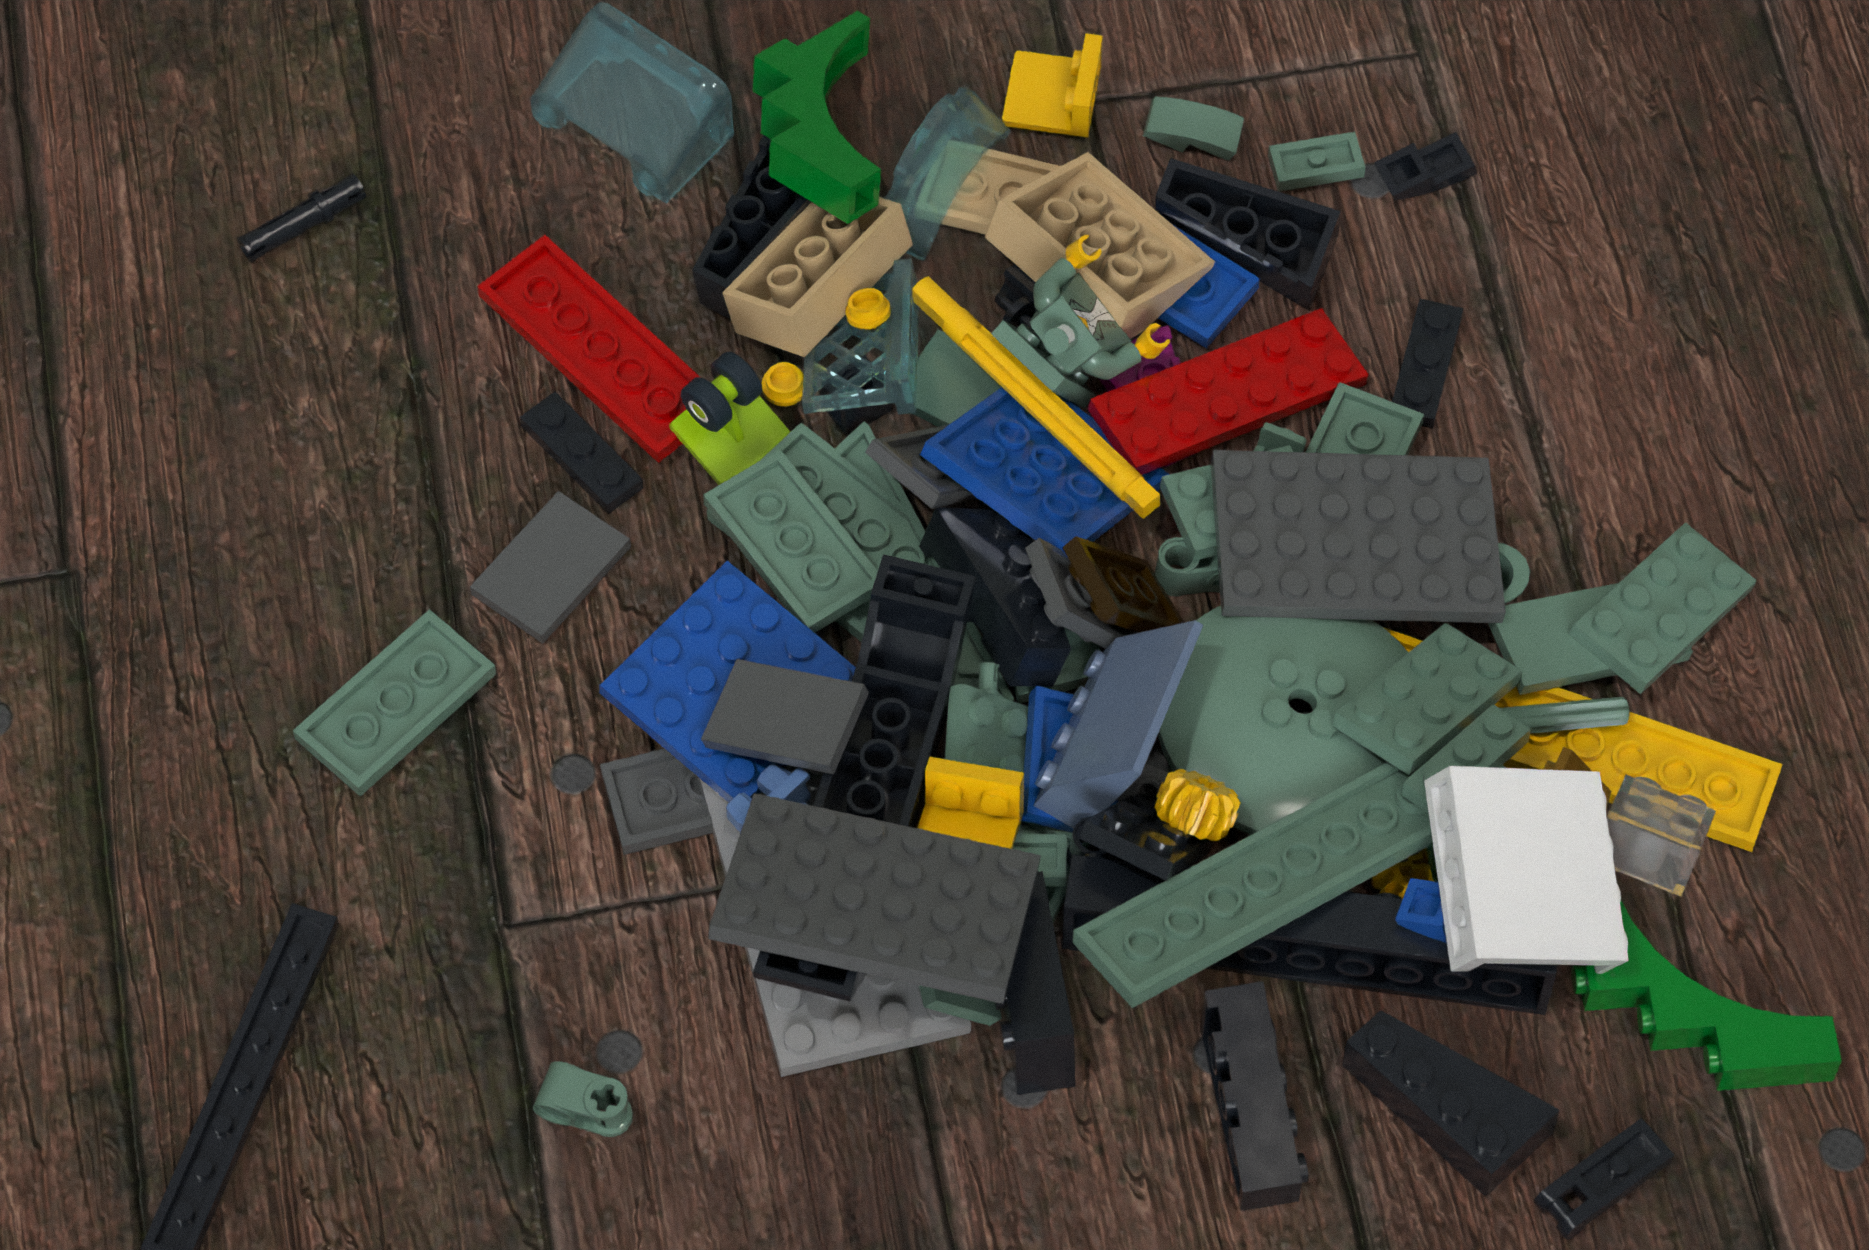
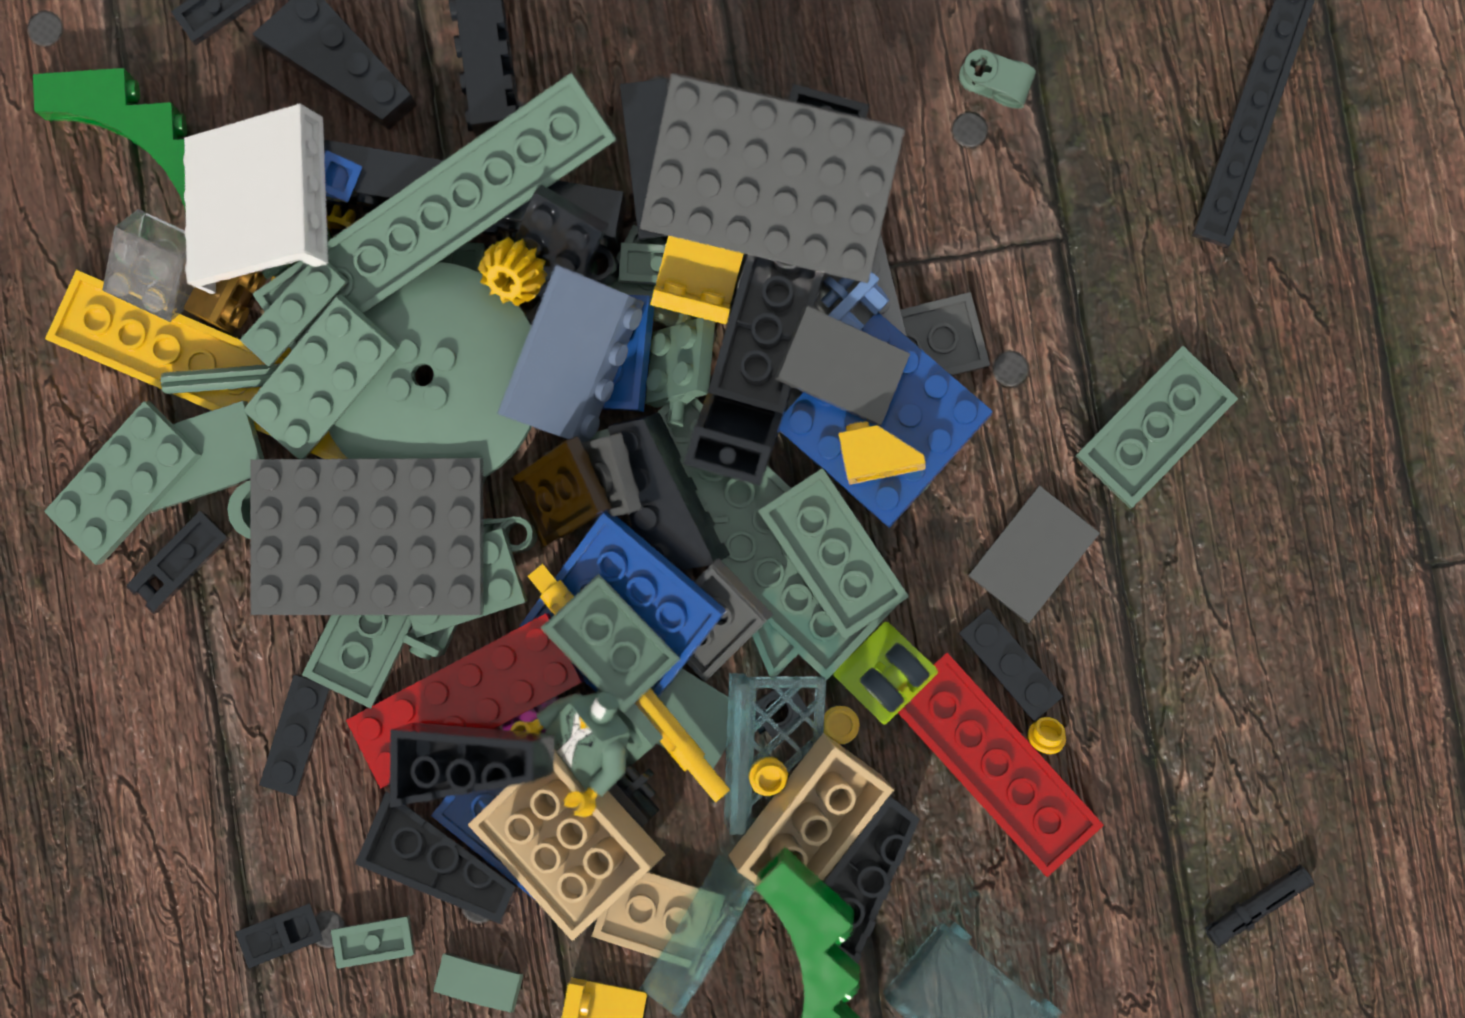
camera: 175 degrees left, 25 degrees up
(540, 375) = (1047, 735): none -> yellow plate
(741, 620) = (876, 454): none -> yellow slope
(1057, 420) = (610, 643): none -> sand green tile
(1217, 298) = (459, 760): none -> black wedge
(1585, 533) = (178, 561): none -> black plate

